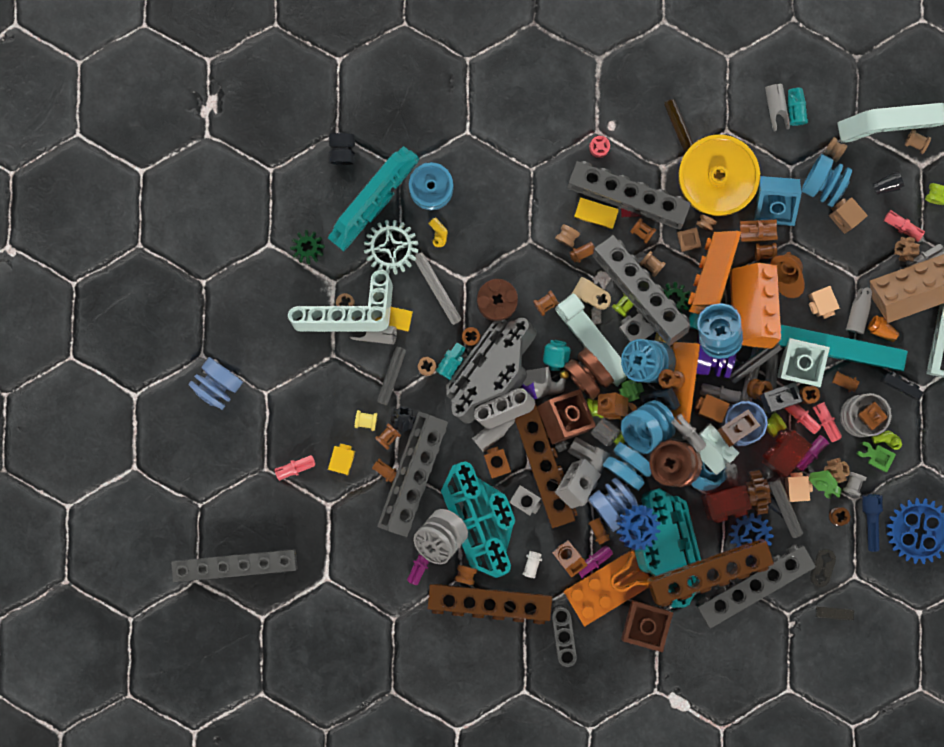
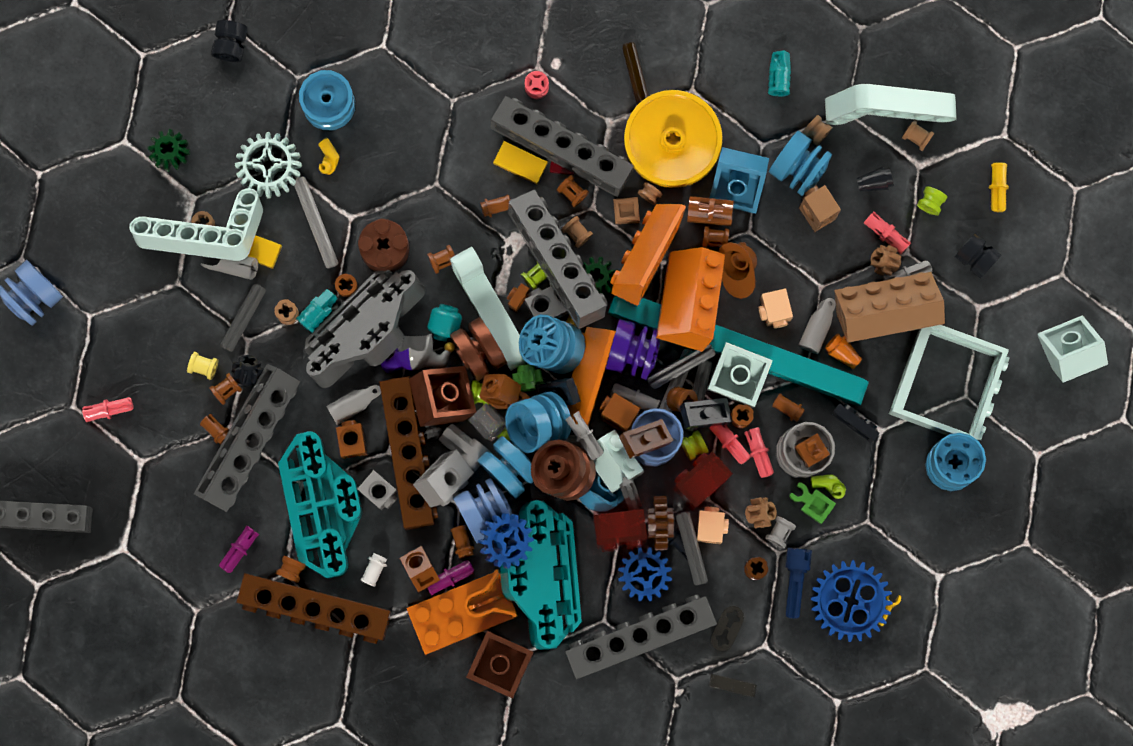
camera: 10 degrees right, 5 degrees down
(341, 459) = (165, 407): yellow brick -> none
(373, 198) = (253, 101): teal connector -> none
(440, 536) = (266, 516): light grey wheel -> none
(496, 406) = (369, 374): light grey beam -> none
(567, 236) = (481, 183): medium nougat wheel -> none
(569, 645) = (403, 674): dark grey beam -> none
(588, 293) = (496, 255): tan piece -> none
(612, 325) = (517, 297): none -> dark orange plate
(660, 583) = (648, 591): reddish brown brick -> none
(670, 375) = (571, 362): dark orange bush -> none
(720, 330) = (640, 317): dark azure wheel -> none
(777, 104) = (756, 66): light grey piece -> none
(818, 446) = (734, 487): magenta axle -> none
(825, 482) = (744, 523): bright green plate -> none

